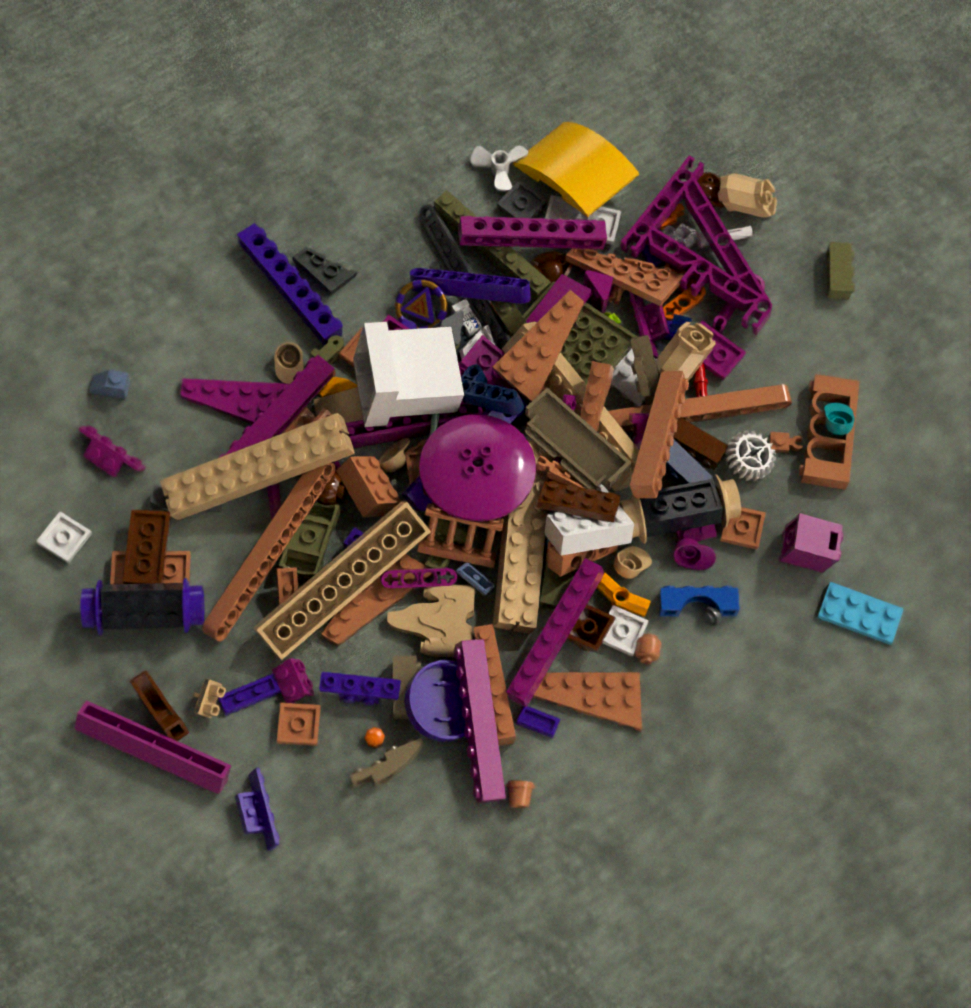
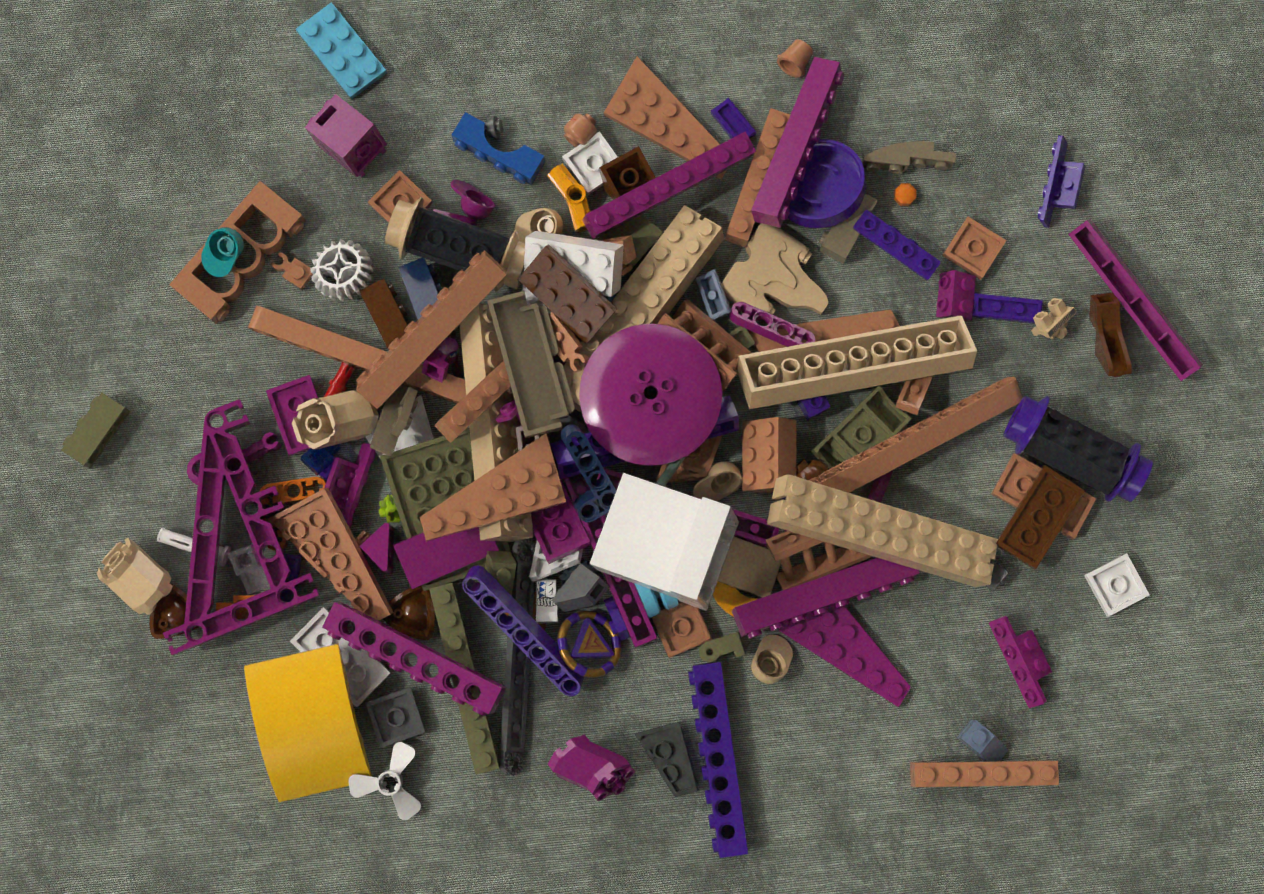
camera: 150 degrees left, 15 degrees up
(65, 380) = (984, 773): none -> nougat arch
(372, 233) = (591, 767): none -> magenta brick

